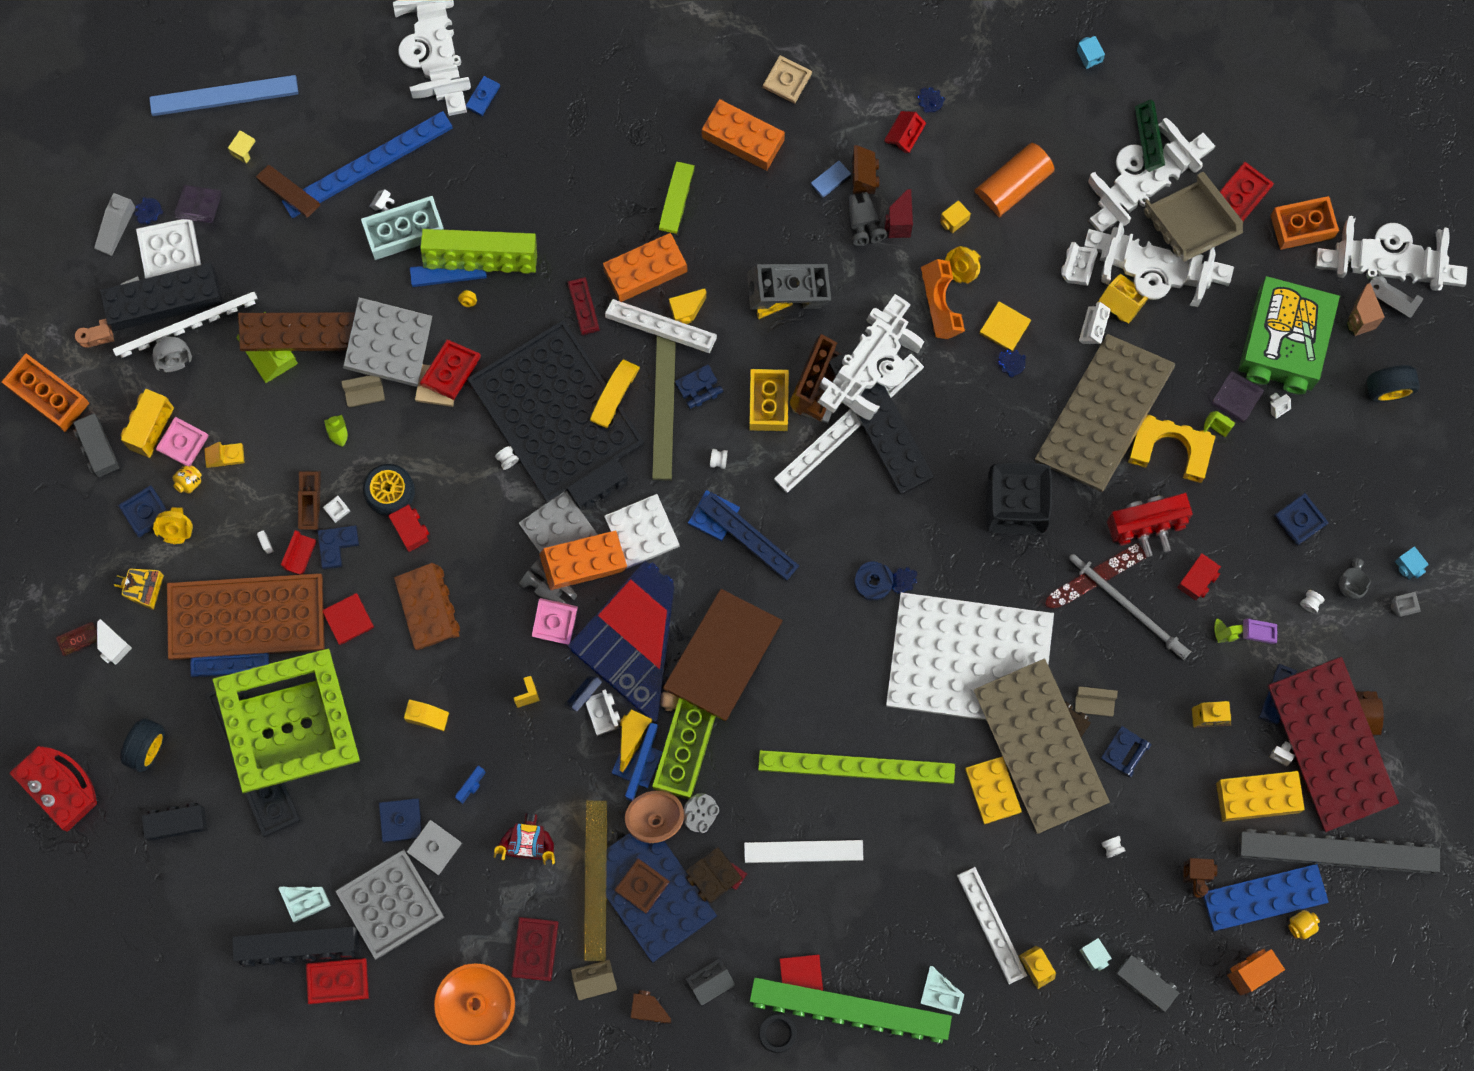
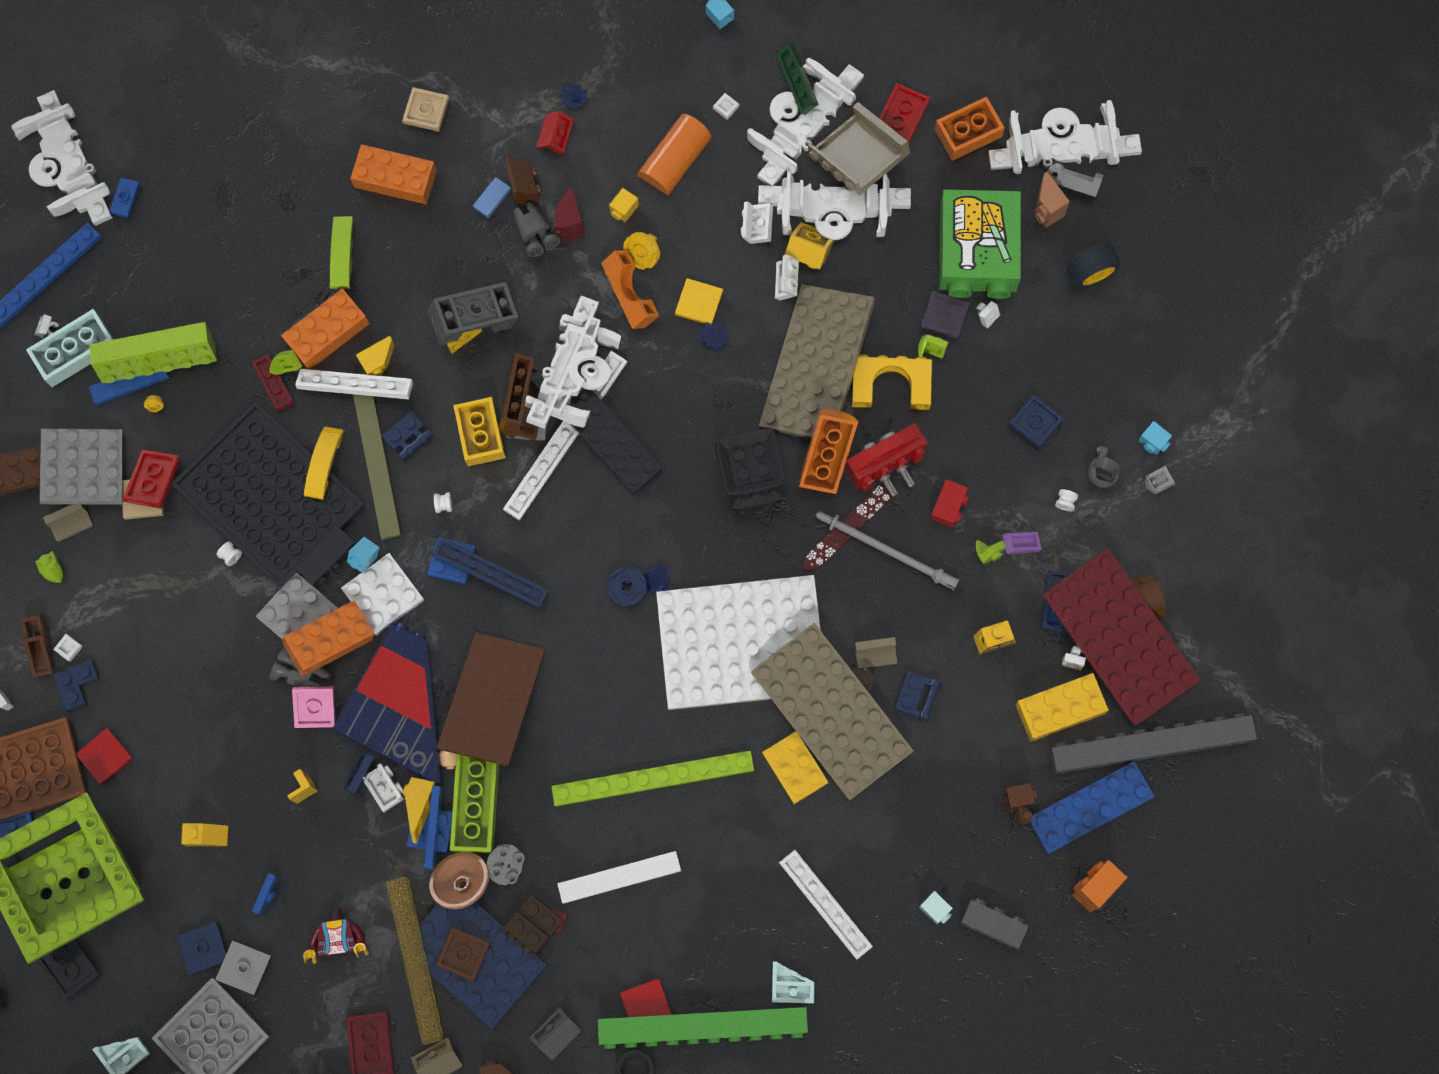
camera: 10 degrees left, 0 degrees up
(298, 553) = (37, 702): red panel -> none
(377, 484) = (116, 615): wheel -> none
(408, 527) = (145, 649): red brick -> none
(427, 606) = (181, 723): dark orange bracket -> none
(600, 290) = (285, 362): none -> lime plate
(632, 489) = (363, 554): none -> medium azure brick
(1038, 966) = (881, 935): yellow torso -> none
(1075, 145) = (726, 106): none -> white tile
(1096, 499) = (828, 451): none -> orange brick
(1113, 847) = (928, 795): white wheel -> none
(1304, 925) = (1135, 825): yellow head -> none

